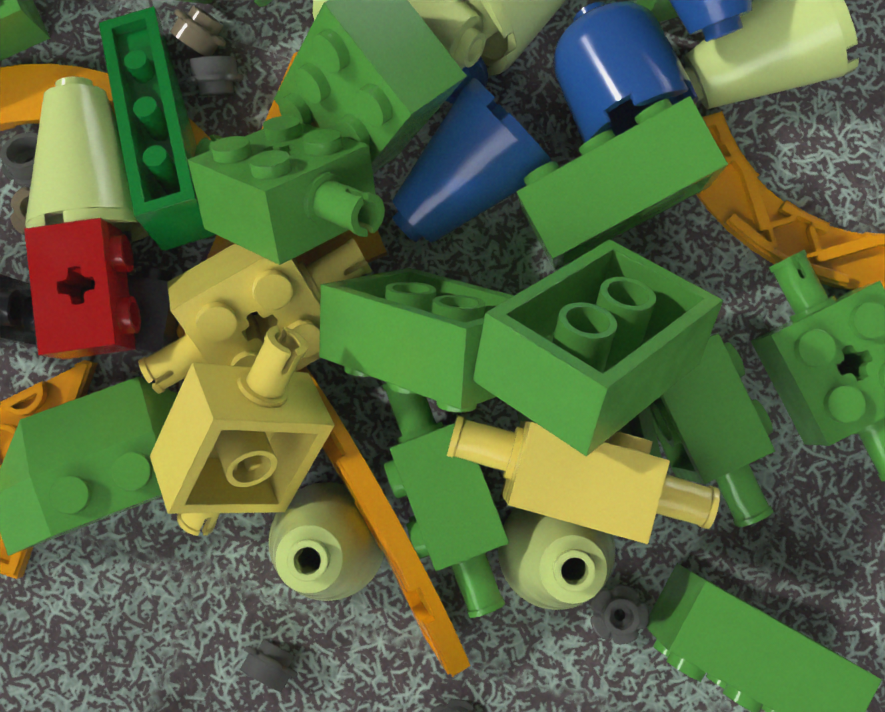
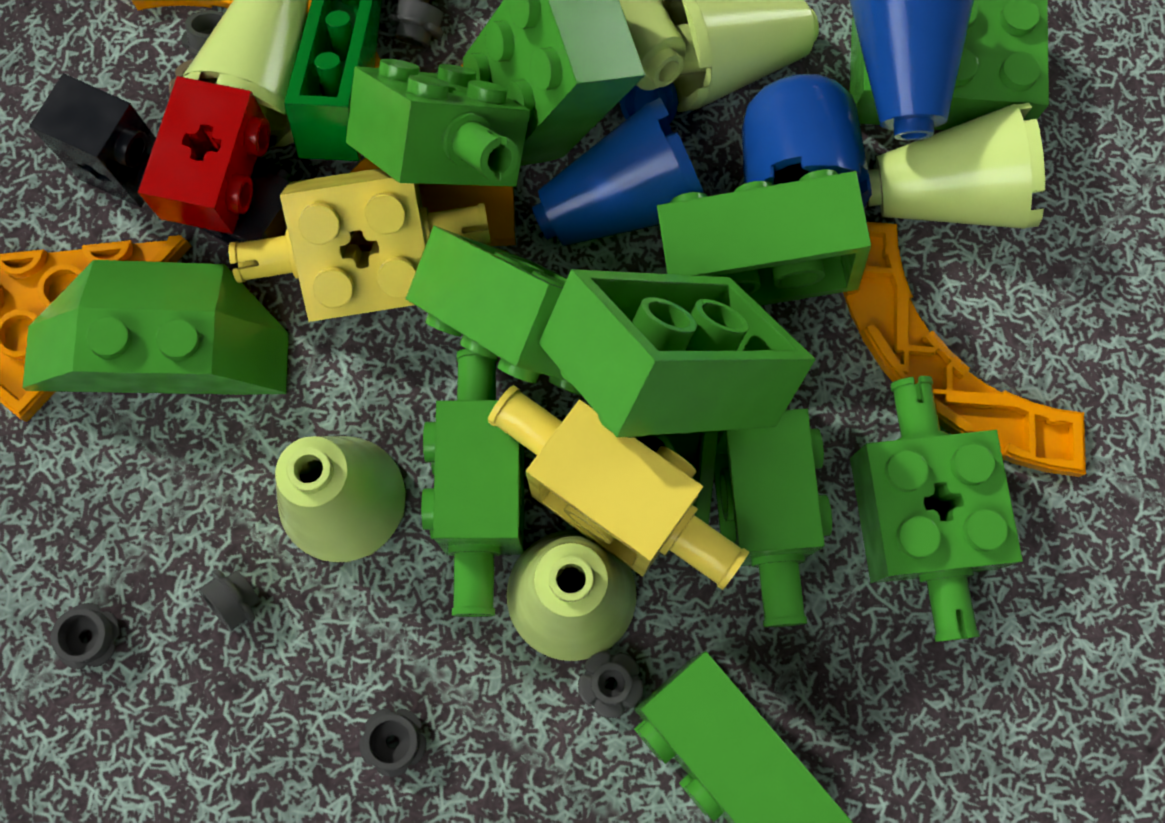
camera: 15 degrees right, 10 degrees down
(241, 436) = (296, 341): light yellow brick -> none
(394, 543) = (402, 494): light orange tile -> none

